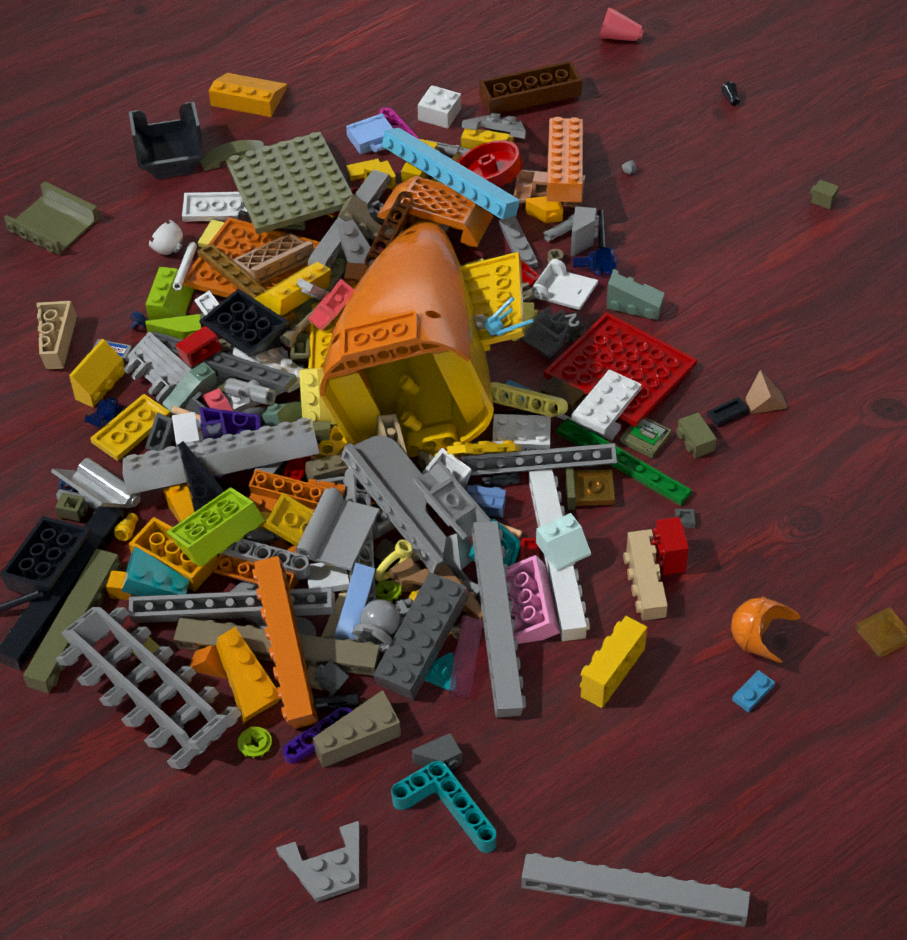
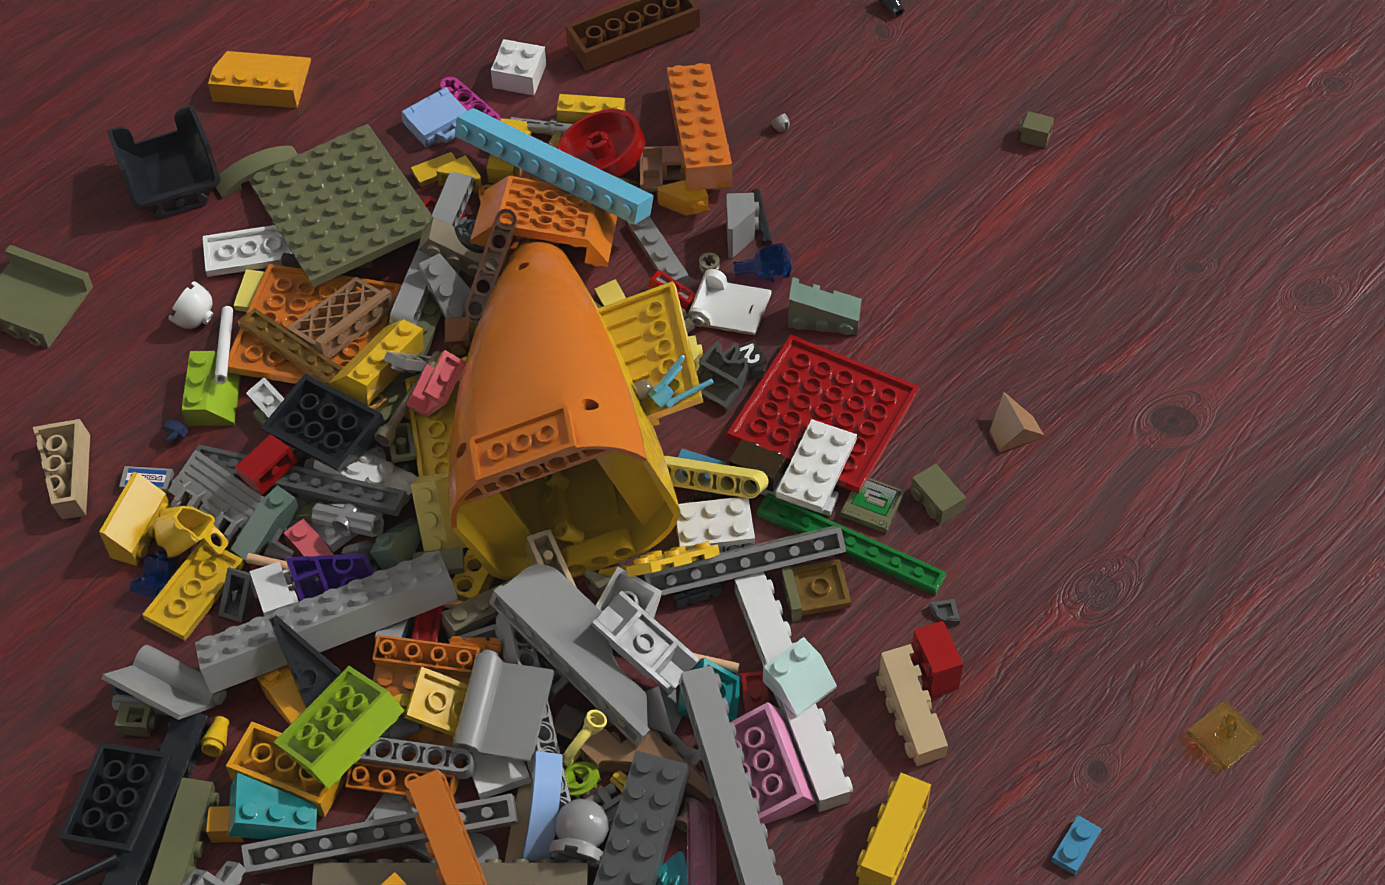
camera: 10 degrees left, 5 degrees up
(129, 382) = (183, 527): none -> yellow piece
(175, 327) = (236, 435): lime slope -> none
(490, 500) = (687, 626): medium blue brick -> none
(496, 122) = (600, 81): light grey wing -> none
(559, 229) = (710, 221): light grey pin -> none
(728, 412) = (970, 454): black tile -> none
(752, 621) = (1058, 757): orange piece -> none

